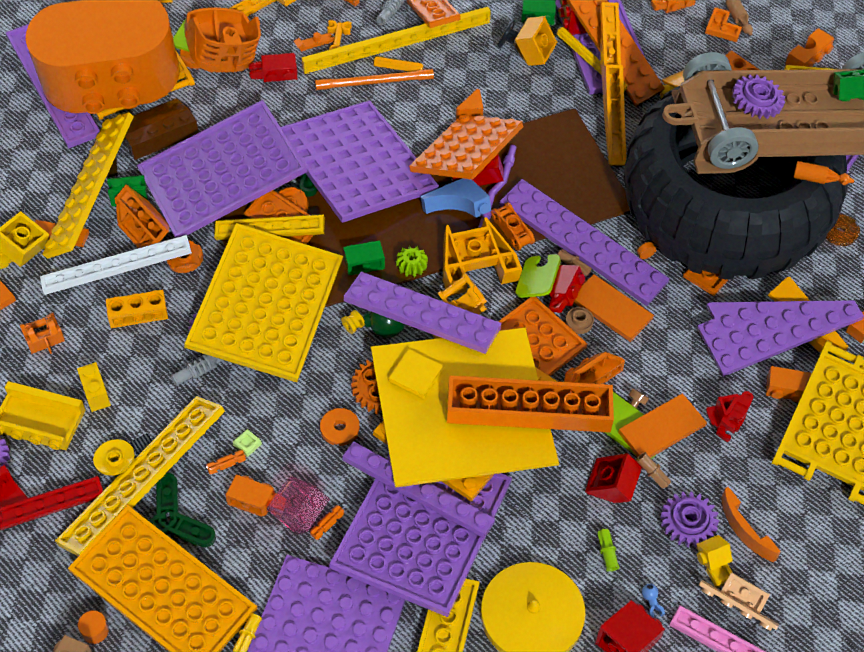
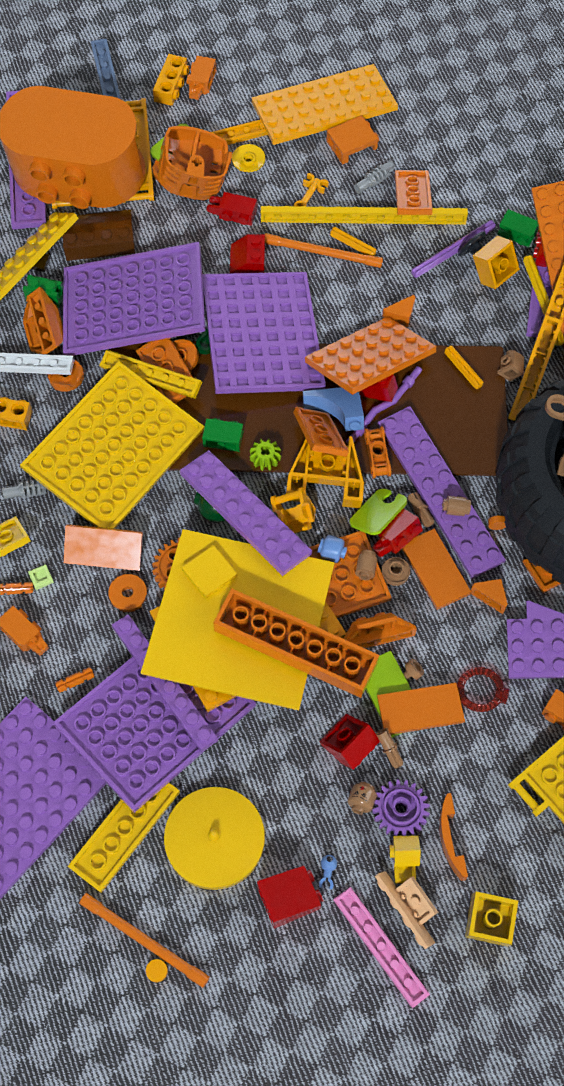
camera: 25 degrees right, 10 degrees up
(270, 23) = (250, 153): none -> yellow dish
(297, 393) = (103, 547): none -> tile
(298, 505) = (53, 654): clear pink slope -> none
(308, 101) = (248, 254): none -> red slope
(315, 41) = (284, 191): orange piece -> none
(353, 321) = (185, 494): yellow wheel -> none
(457, 222) = (320, 432): none -> orange tile
(488, 46) = (450, 250): none -> medium lavender axle
(515, 317) = (332, 548): none -> medium blue head
(551, 134) = (464, 367): none -> light orange axle
(553, 322) = (366, 565): none -> medium nougat brick
(588, 116) = (511, 365): none -> medium nougat brick
(607, 245) = (456, 506): none -> medium nougat brick
(608, 550) = (310, 807): lime axle -> none
(651, 523) = (362, 798): none -> medium nougat head
(673, 310) = (491, 593): none -> orange slope
(723, 388) = (501, 692): none -> clear red piece
(729, 413) = (490, 721): red piece -> none
(819, 580) = (491, 919): none -> yellow brick

